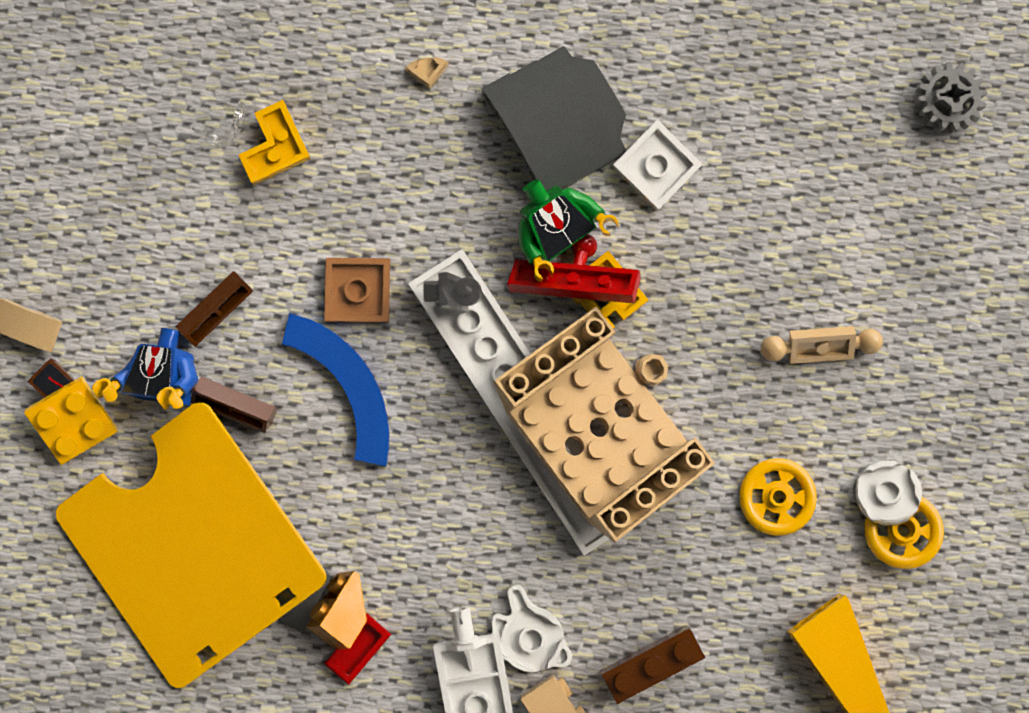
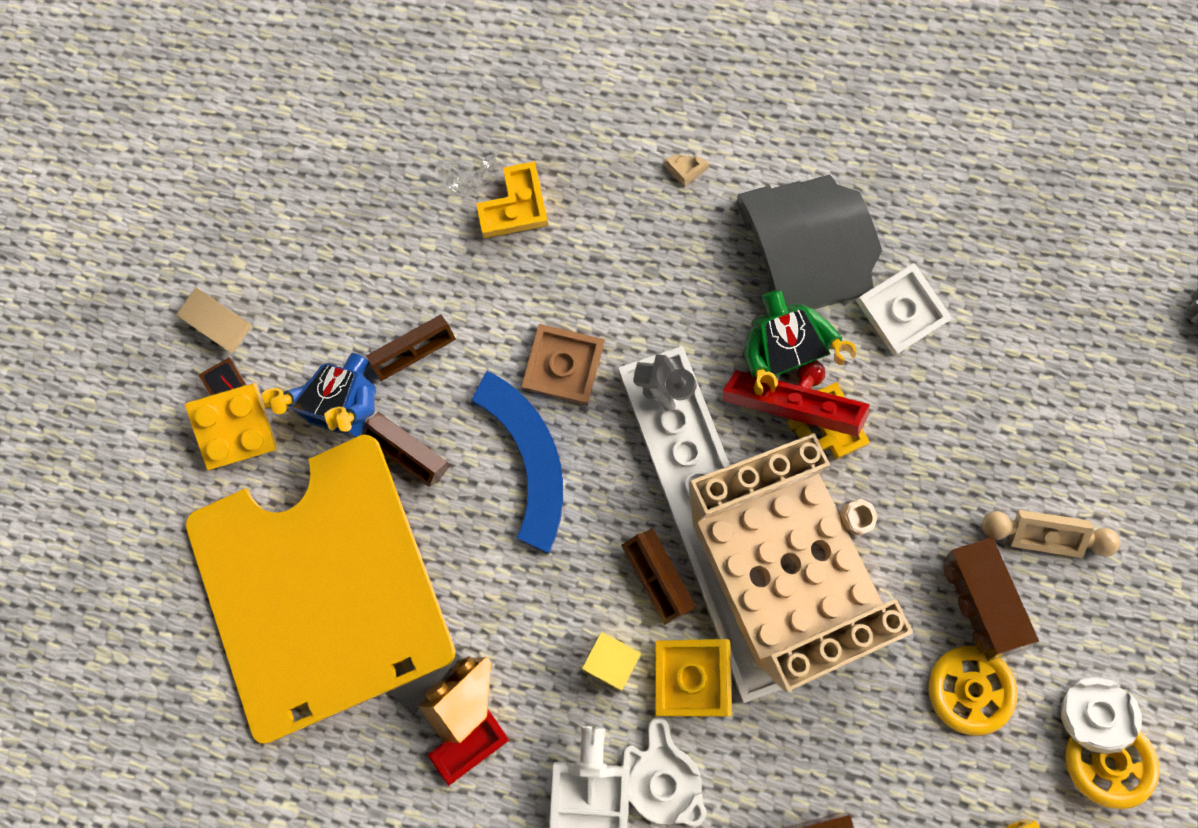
camera: 15 degrees right, 10 degrees down
(462, 549) = (611, 661): none -> light yellow piece
(486, 464) = (658, 576): none -> reddish brown piece
(536, 545) = (693, 678): none -> yellow plate
(776, 417) = (989, 600): none -> reddish brown brick

